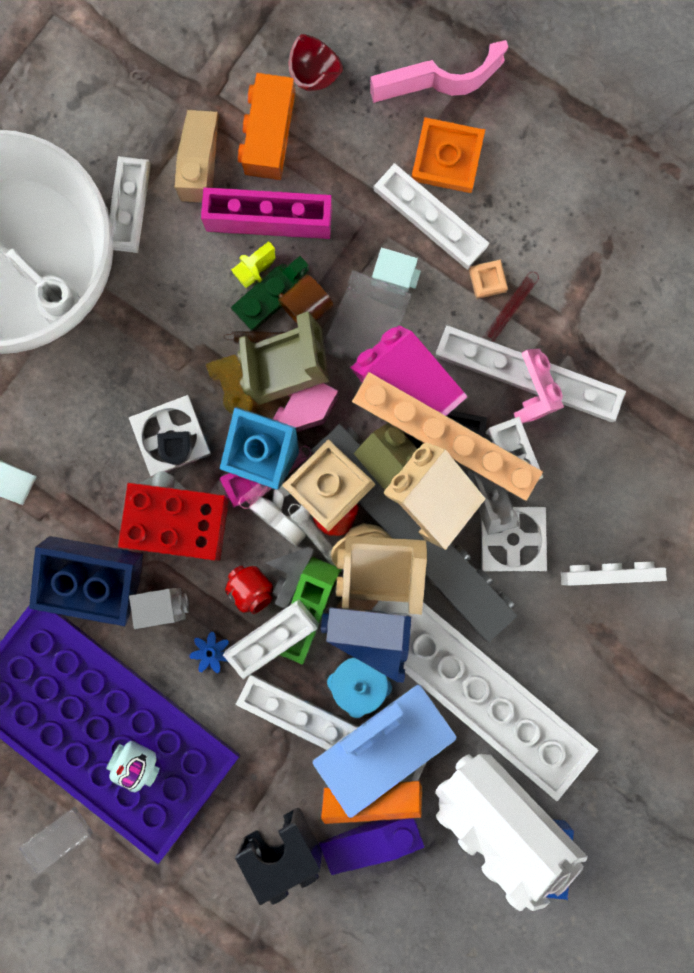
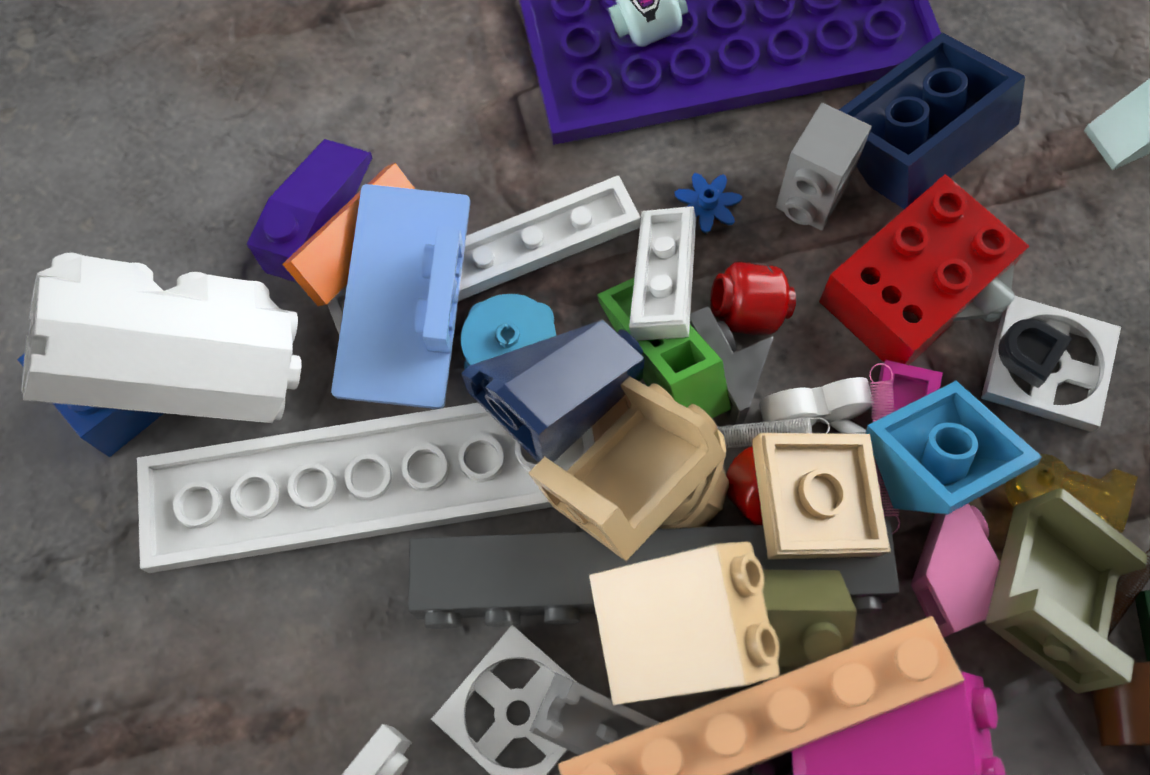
camera: 130 degrees right, 15 degrees down
(278, 868) = (389, 77): black piece -> none

